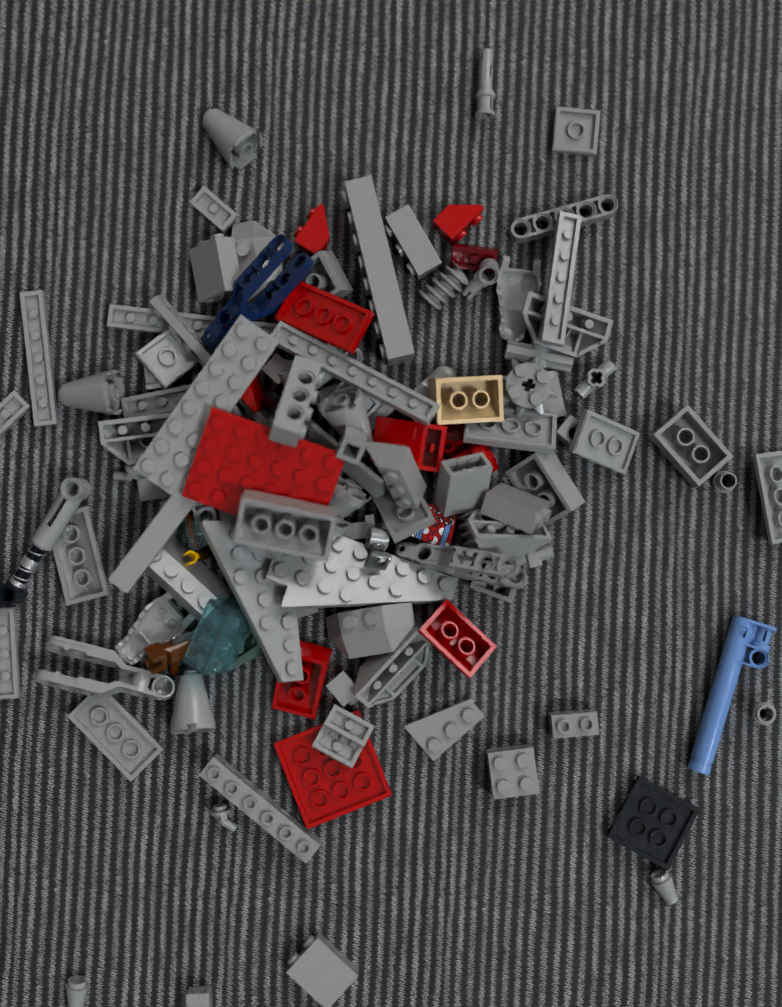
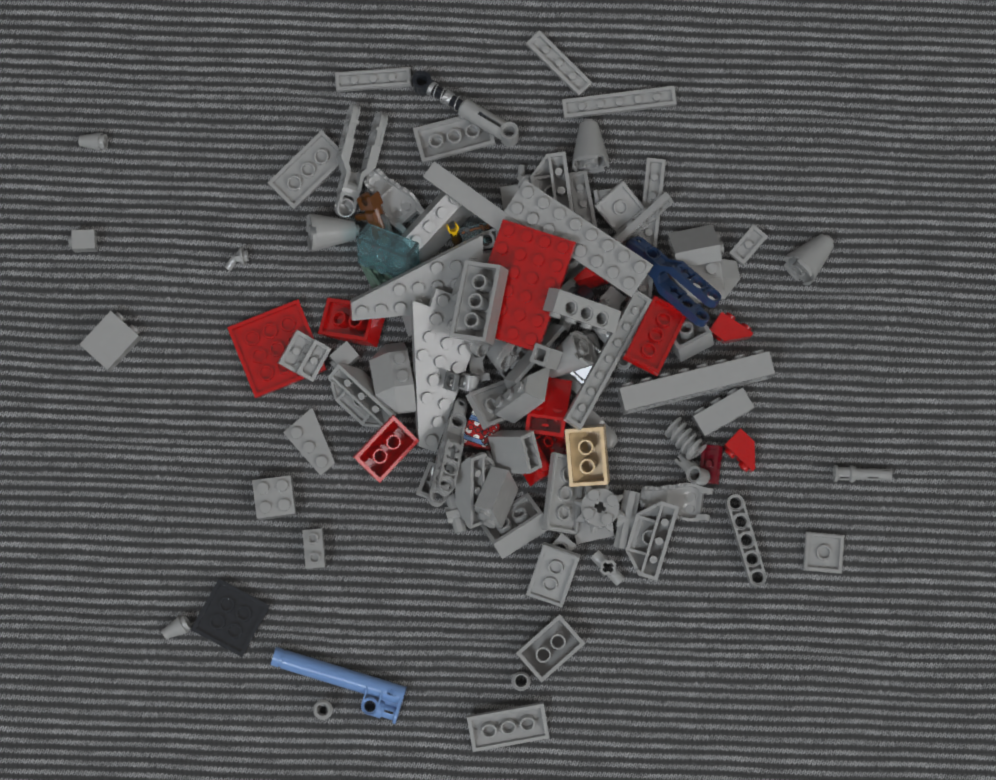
camera: 90 degrees right, 5 degrees down
(261, 808) = (245, 289): light grey brick -> none
(560, 279) = (690, 533): light grey plate -> none

